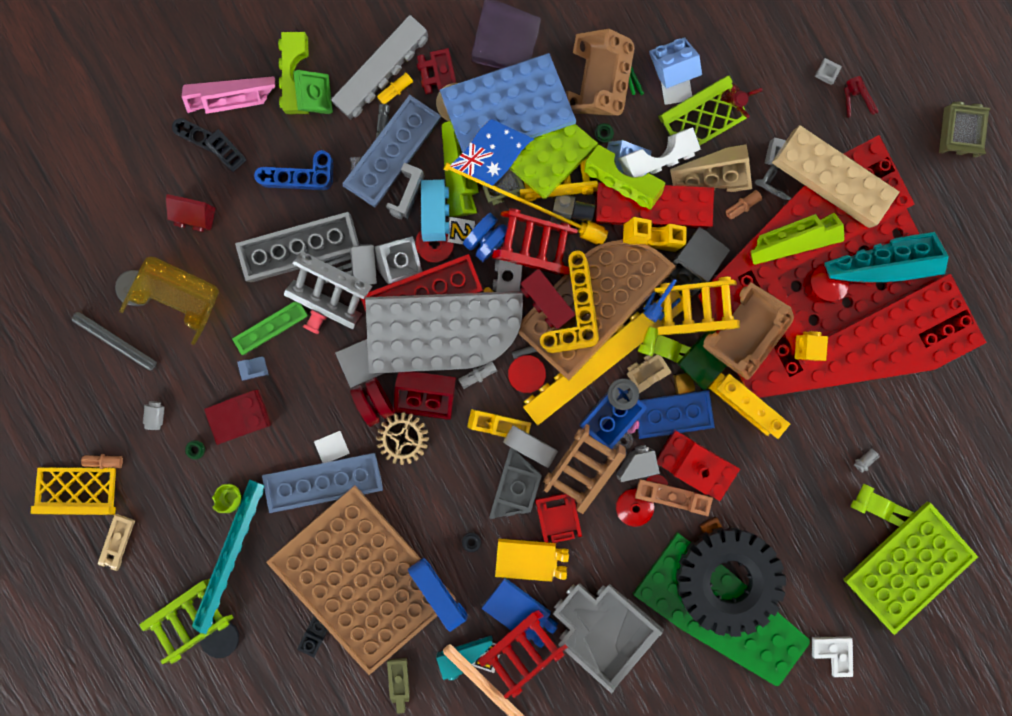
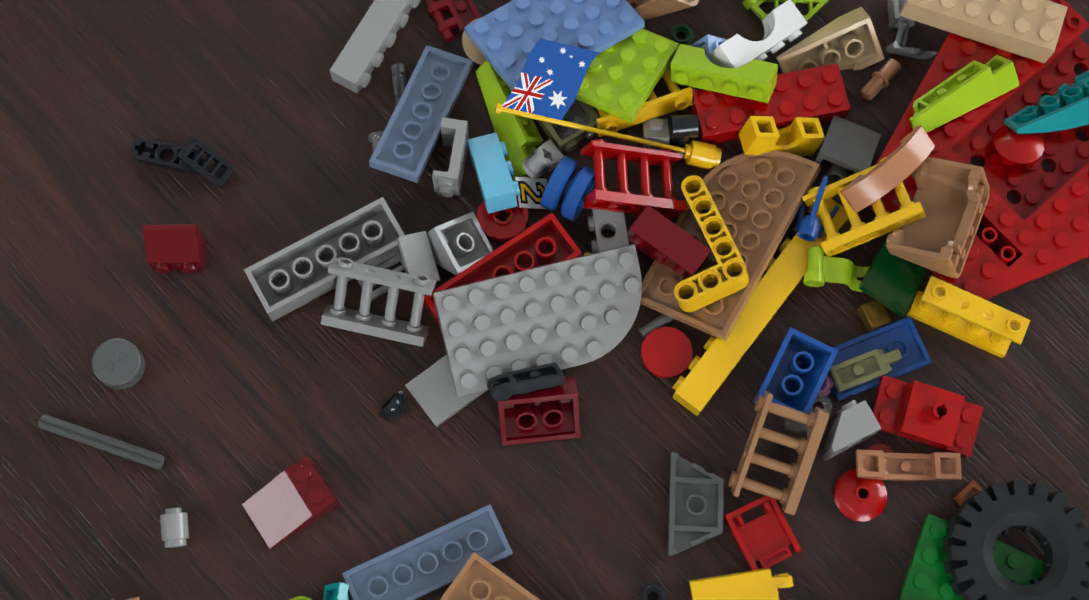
camera: 15 degrees left, 15 degrees down
(174, 289) = (174, 352): clear yellow windscreen -> none
(189, 449) = (235, 556): dark green plate -> none
(226, 94) = (194, 97): bright pink wedge -> none
(252, 368) = (298, 432): sand blue panel -> none
(270, 327) = (310, 372): bright green plate -> none
(294, 49) = (269, 26): lime arch -> none
(295, 174) = (302, 170): blue beam -> none
(313, 92) = (304, 67): bright green tile -> none
(314, 322) = (369, 350): coral bush -> none
(324, 365) = (394, 406): none -> black piece
(331, 447) = (428, 514): white sticker -> none
(372, 402) = (469, 434): dark red wheel -> none
(395, 88) = (406, 42): yellow axle -> none
(411, 441) = (510, 474): tan gear -> none
(418, 375) = (525, 380): none -> black hinge
(474, 208) = (542, 160): none -> light grey piece
(477, 375) = (601, 368): light grey pin -> none
(495, 423) = (647, 427): yellow slope -> none
(530, 446) = (698, 442): light grey beam -> none
(632, 395) = (798, 327): dark grey gear -> none
(648, 371) = (825, 309): tan cylinder -> none
(662, 422) = (863, 368): none -> olive hinge
(723, 291) = (890, 171): none -> nougat slope
(811, 346) = (1024, 215): yellow brick -> none

